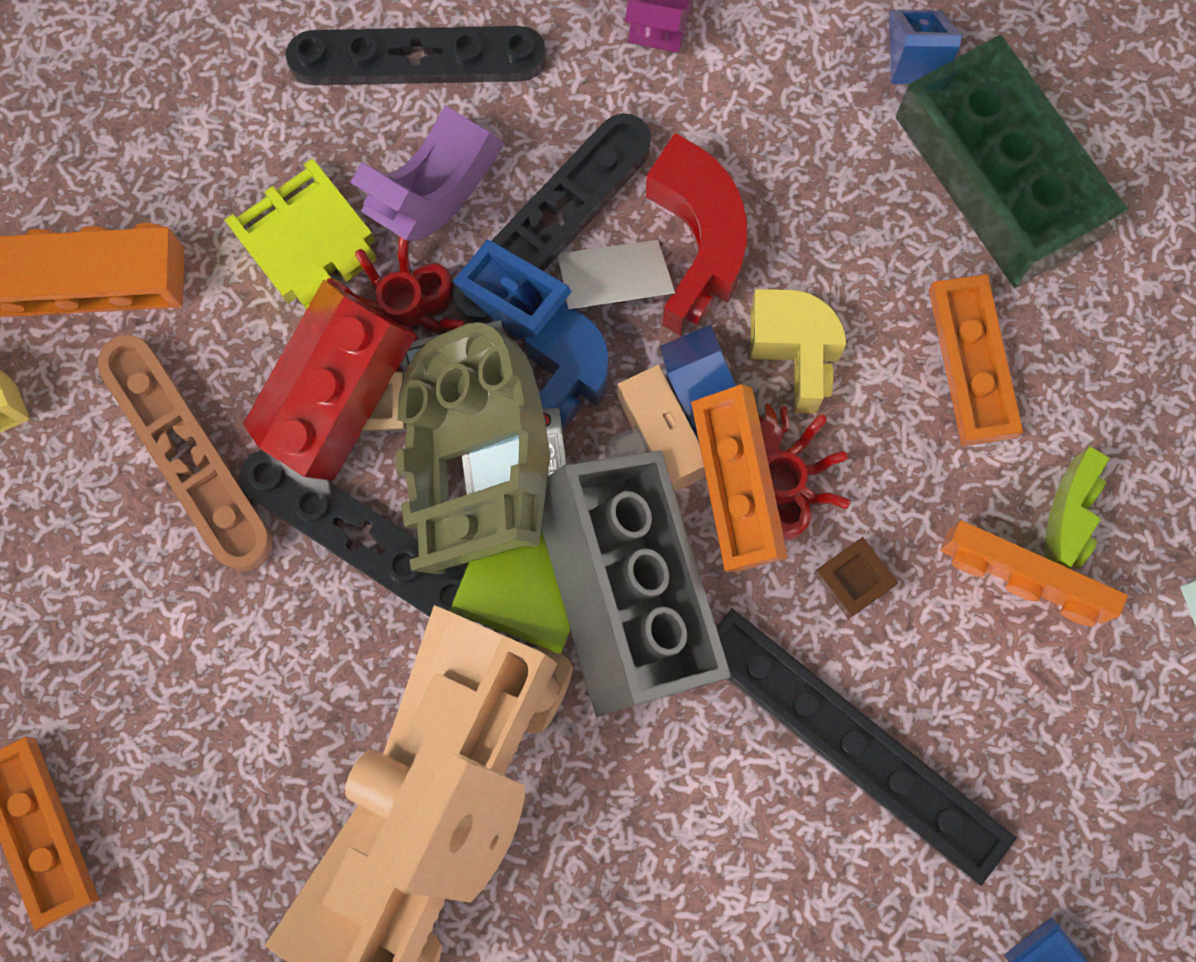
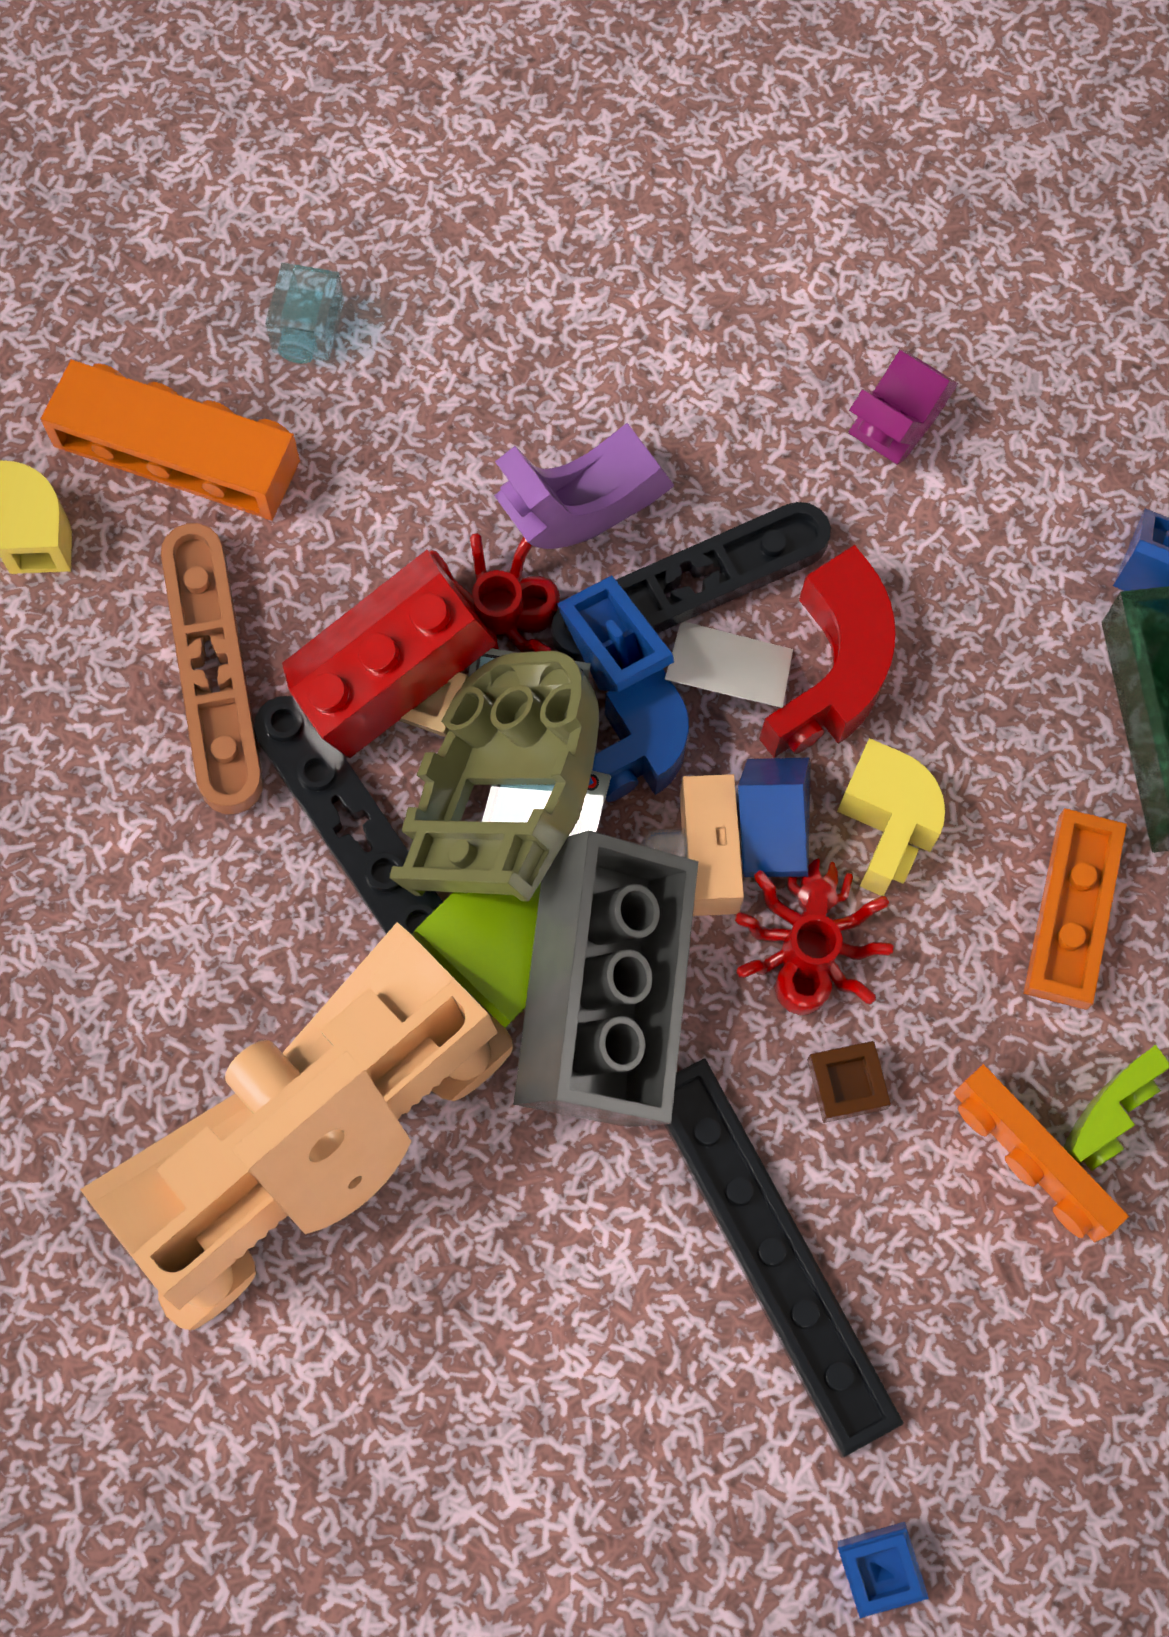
camera: 15 degrees right, 5 degrees down
(133, 120) = (304, 313): none -> clear light blue brick
(304, 235) = (427, 497): neon yellow plate -> none
(466, 55) = (675, 377): black piece -> none
(739, 479) = (765, 924): orange plate -> none

